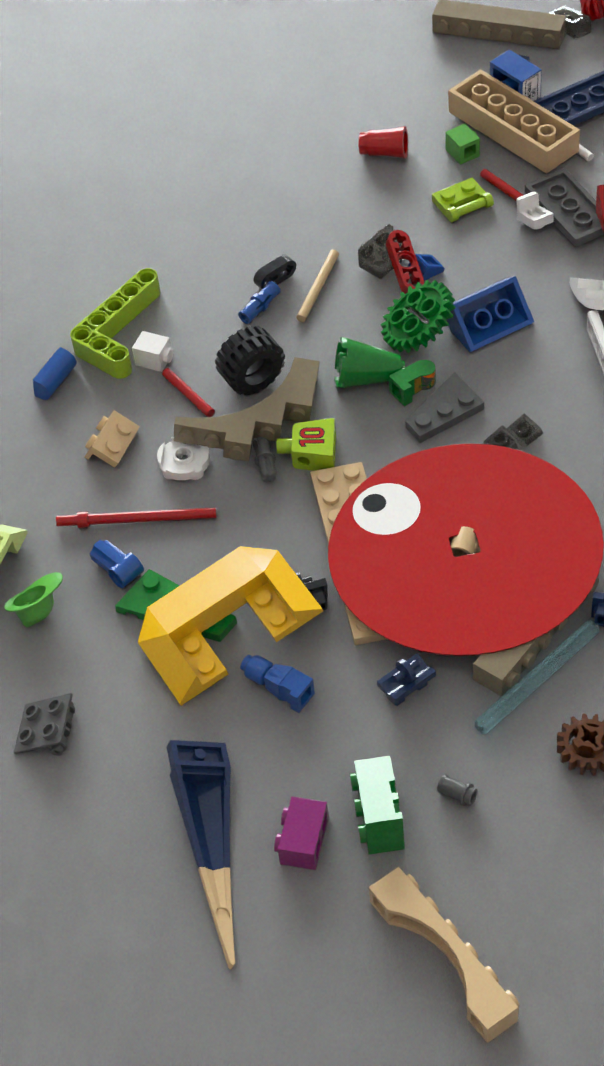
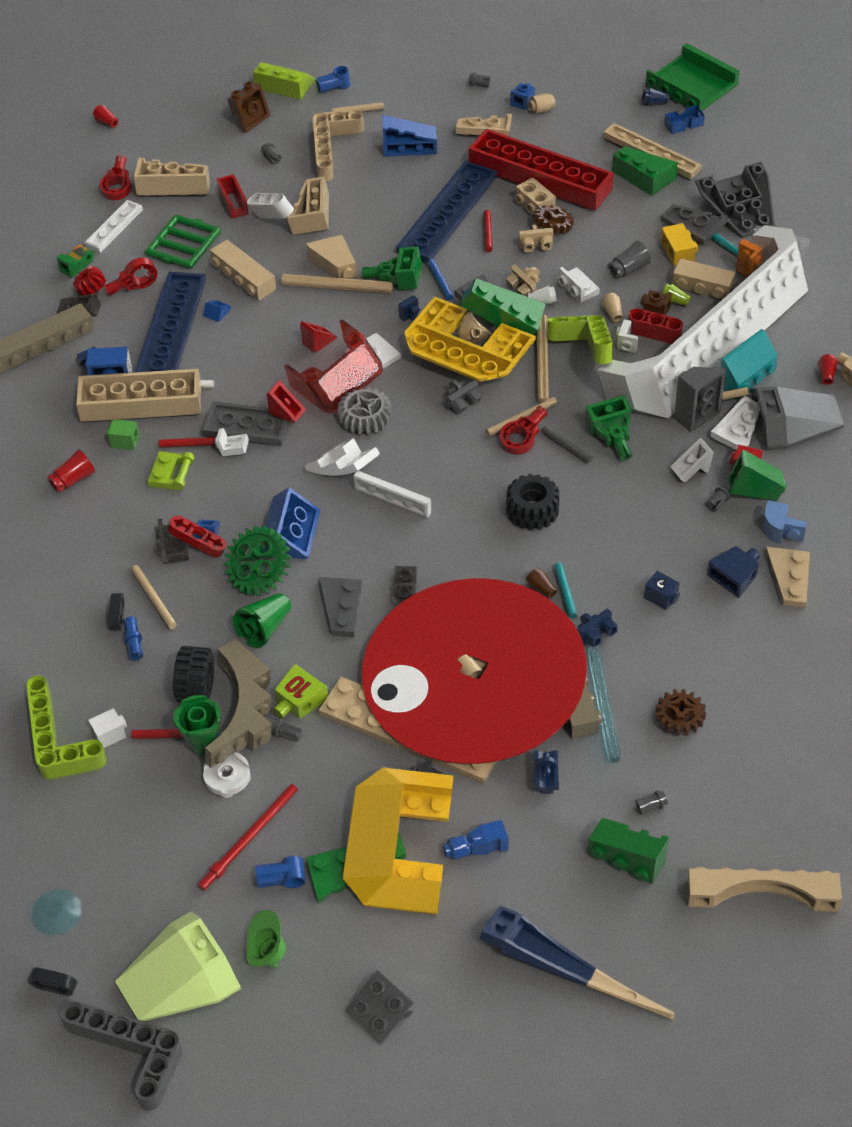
camera: 55 degrees left, 0 degrees up
(53, 373) = (59, 802): blue brick -> none
(113, 438) = (160, 806): tan bracket -> none
(194, 390) = (198, 721): none -> green cone
(302, 833) = (611, 907): magenta brick -> none
(412, 380) = (301, 608): green leg -> none

